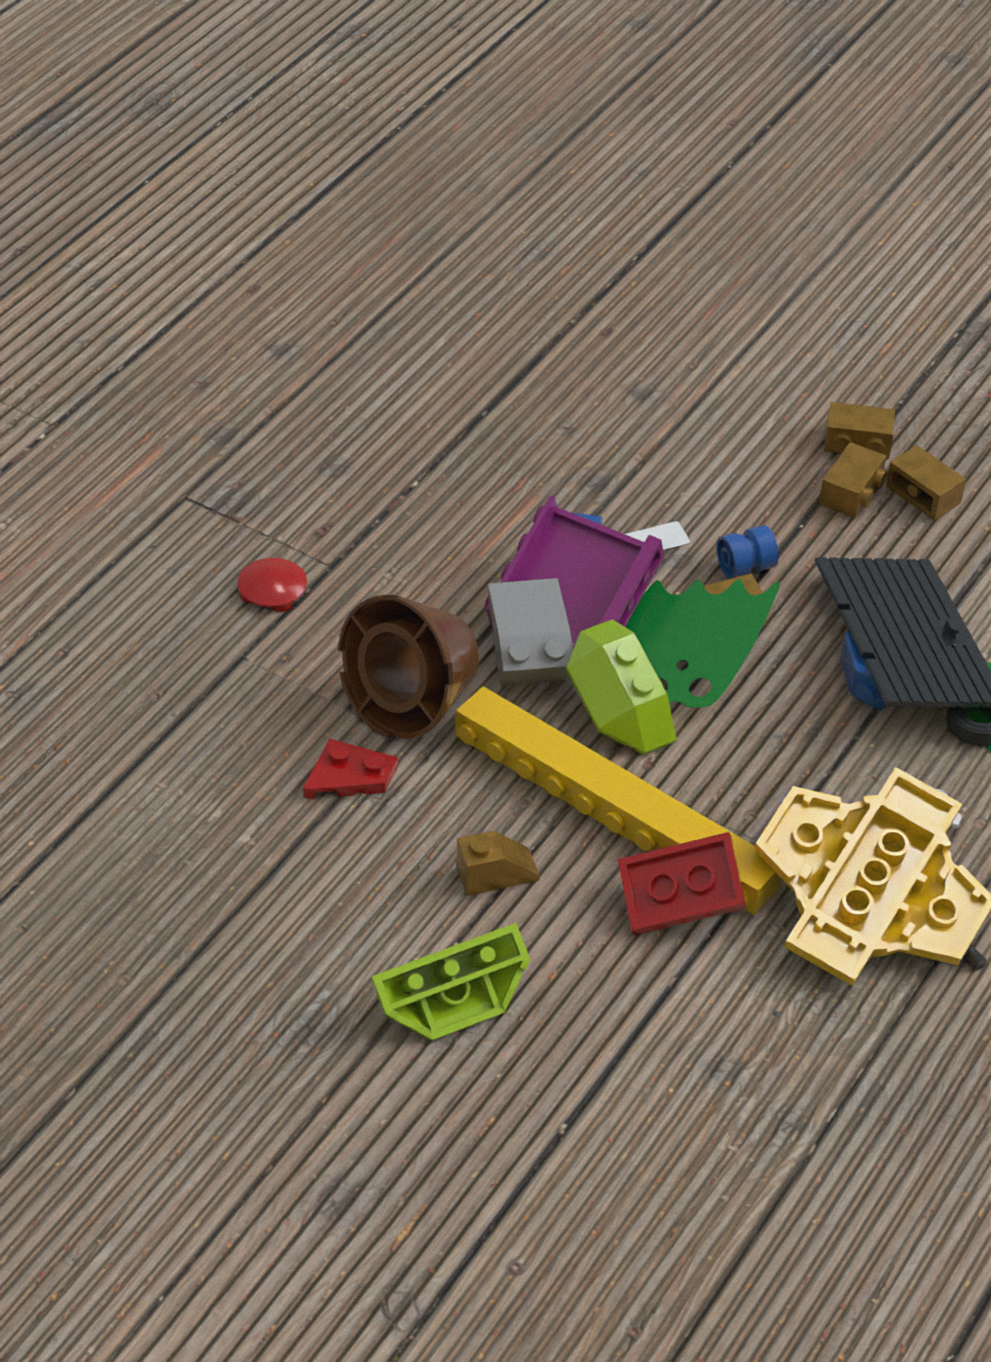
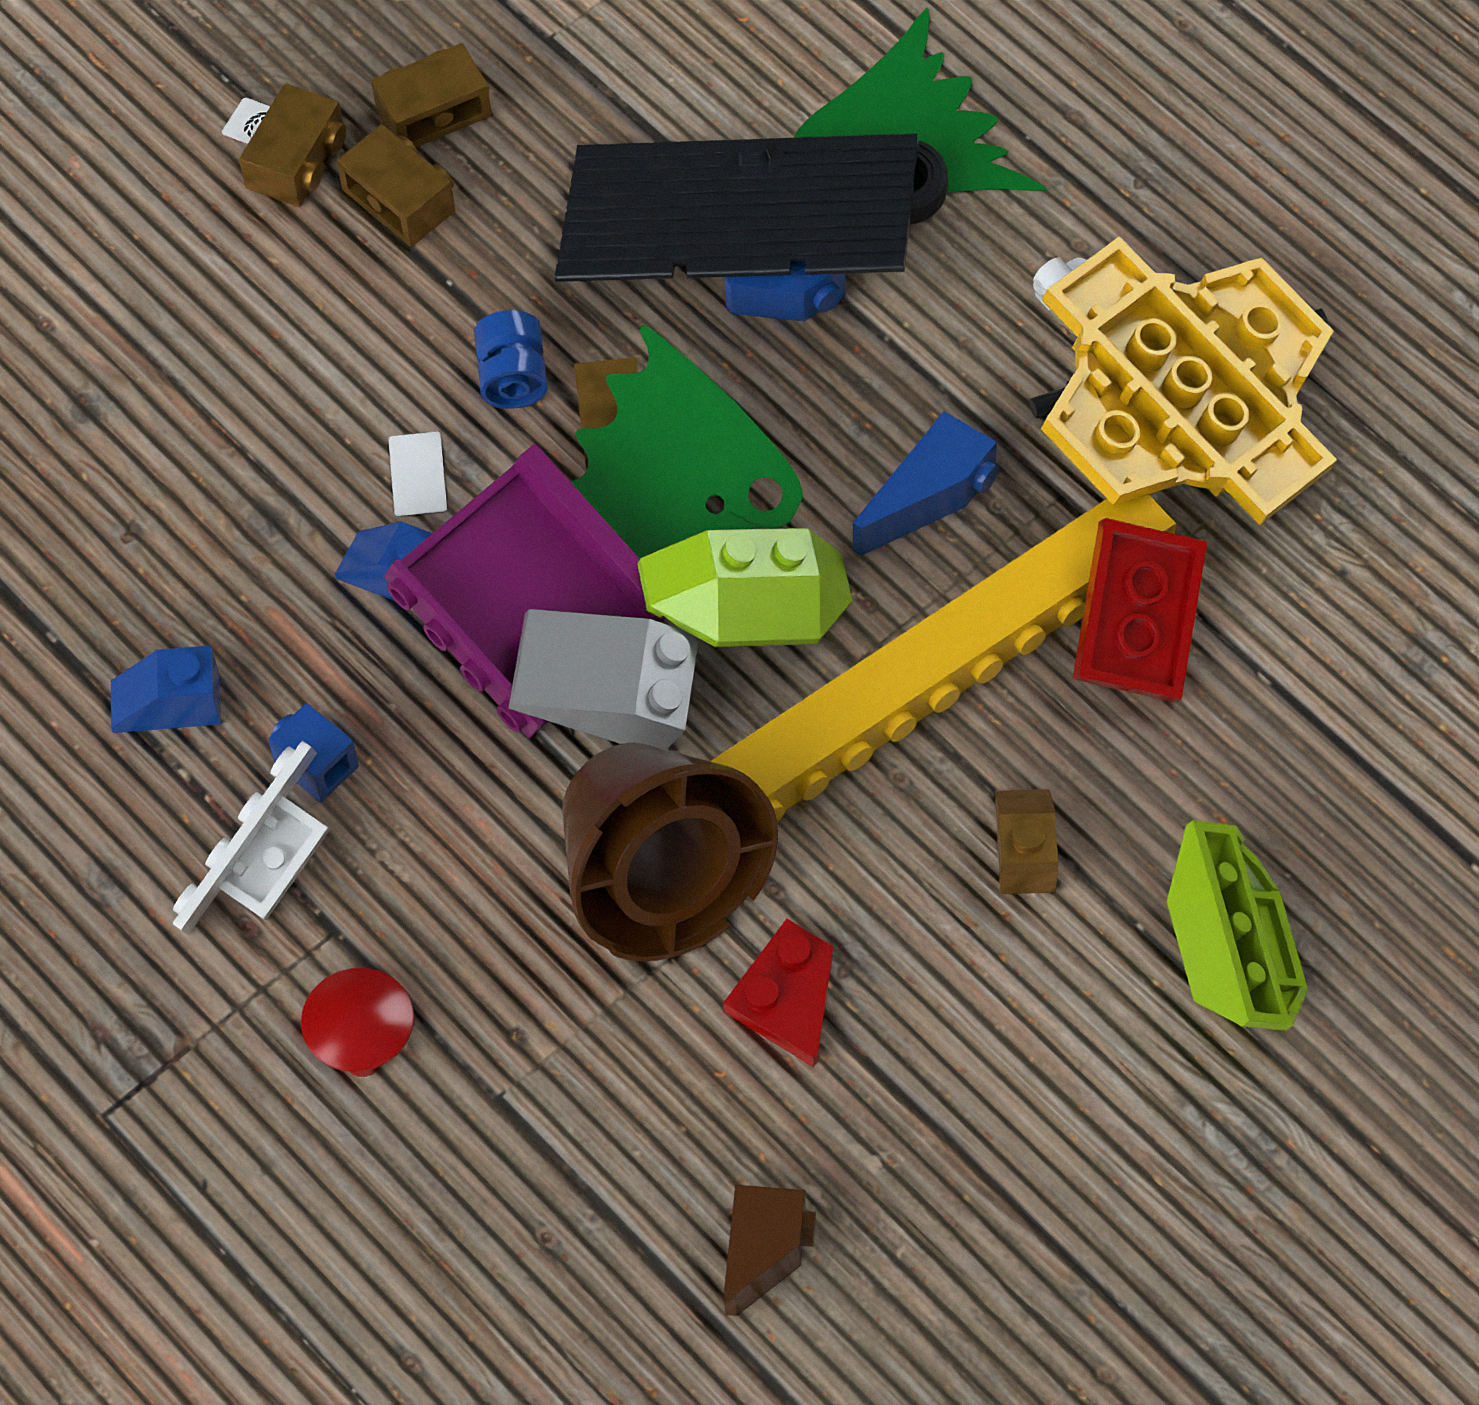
camera: 70 degrees left, 15 degrees up
(164, 783) = (764, 1242): none -> reddish brown slope
(363, 509) = (264, 852): none -> white bracket
(439, 524) = (335, 750): none -> blue brick
(460, 462) = (167, 691): none -> blue slope
(743, 767) = (929, 484): none -> blue slope

